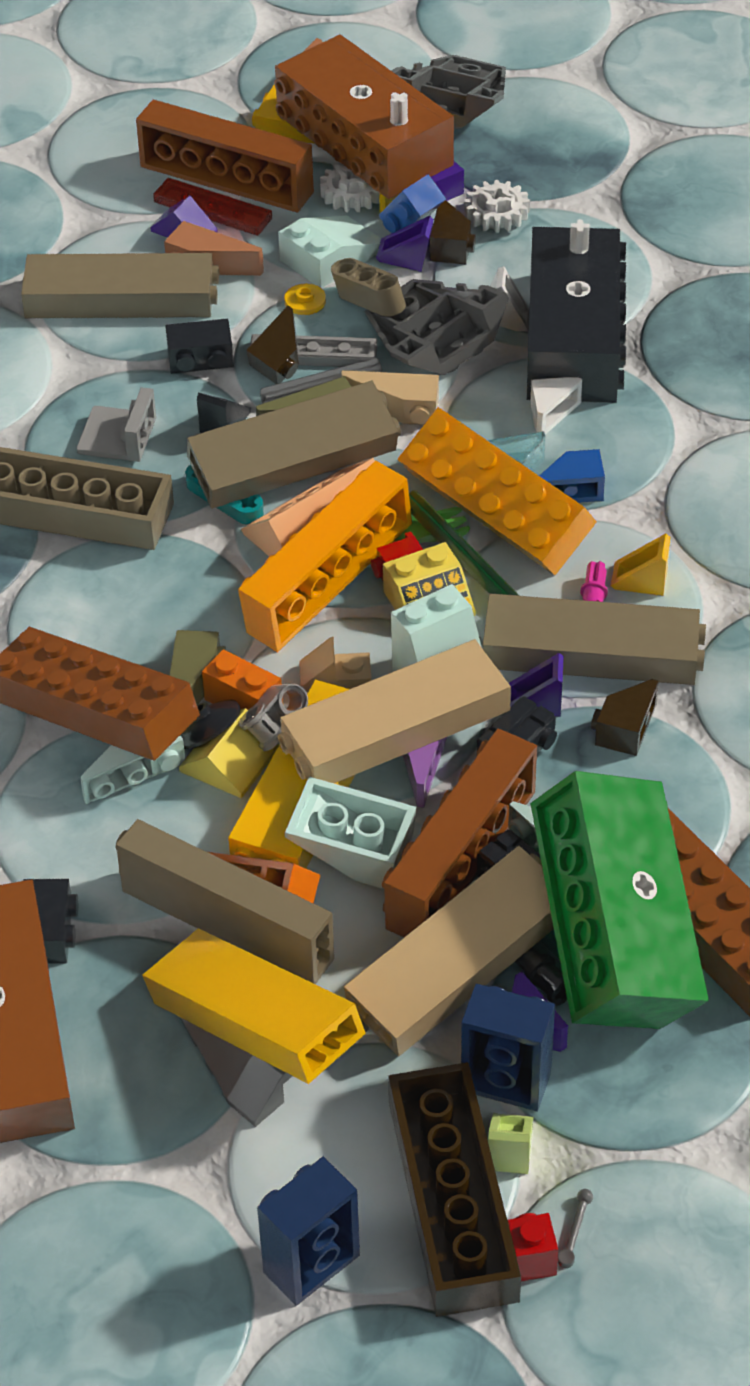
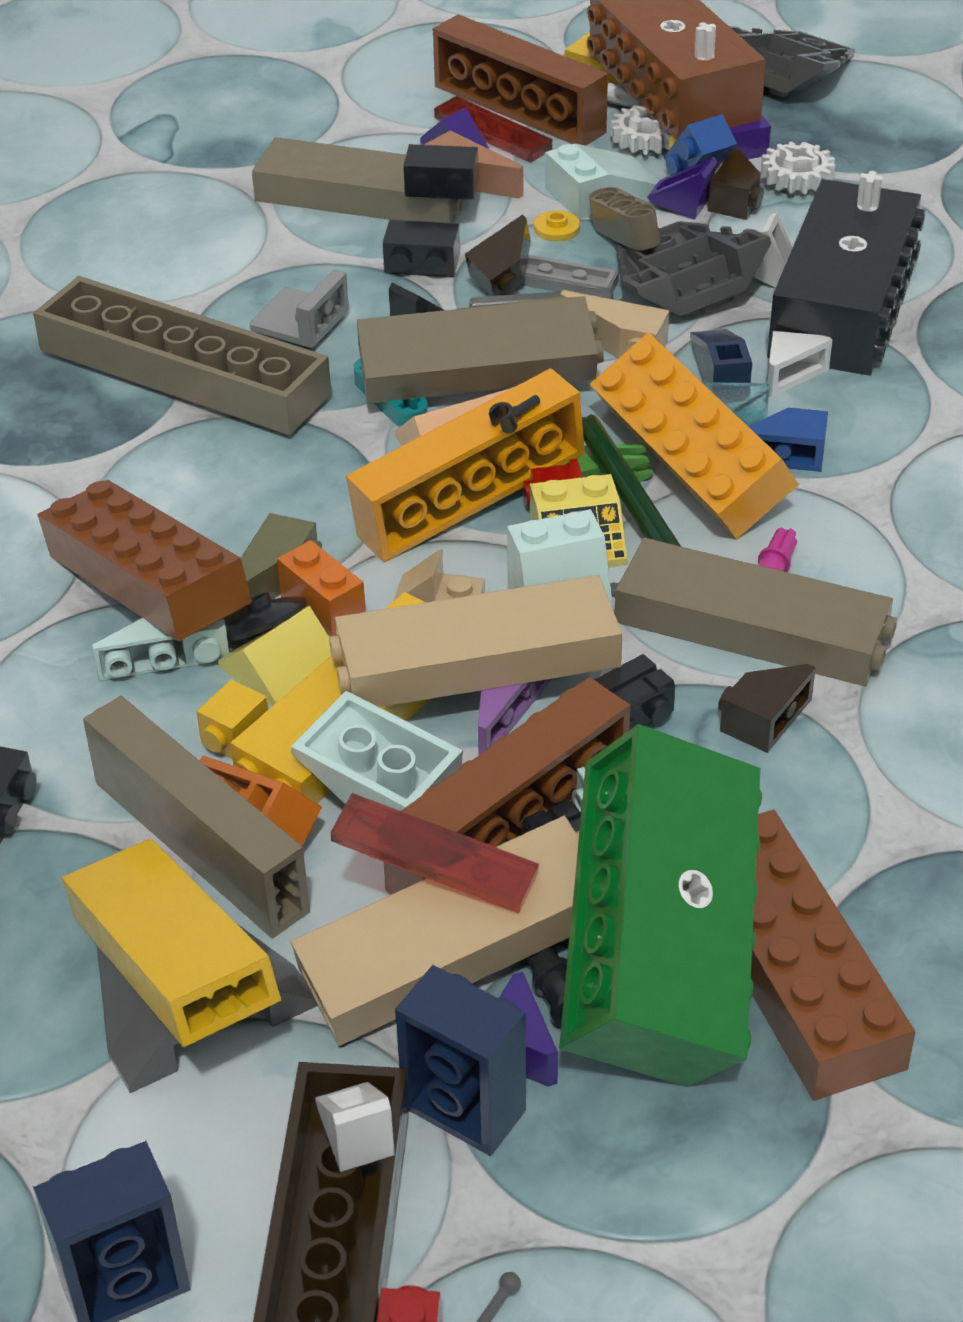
camera: 15 degrees right, 5 degrees down
(197, 270) = (441, 171): none -> black brick
(215, 815) = (228, 715): none -> yellow brick
(264, 717) = (320, 620): light grey piece -> none
(359, 509) = (507, 415): none -> black hand
(435, 896) = (435, 852): none -> clear red tile
(452, 1109) = (357, 1125): none -> white slope
(494, 410) = (722, 356): none -> dark blue slope
(510, 1142) = (433, 1187): yellowish green slope -> none
(541, 685) = (676, 649): dark purple slope -> none
(644, 568) = (845, 547): yellow slope -> none

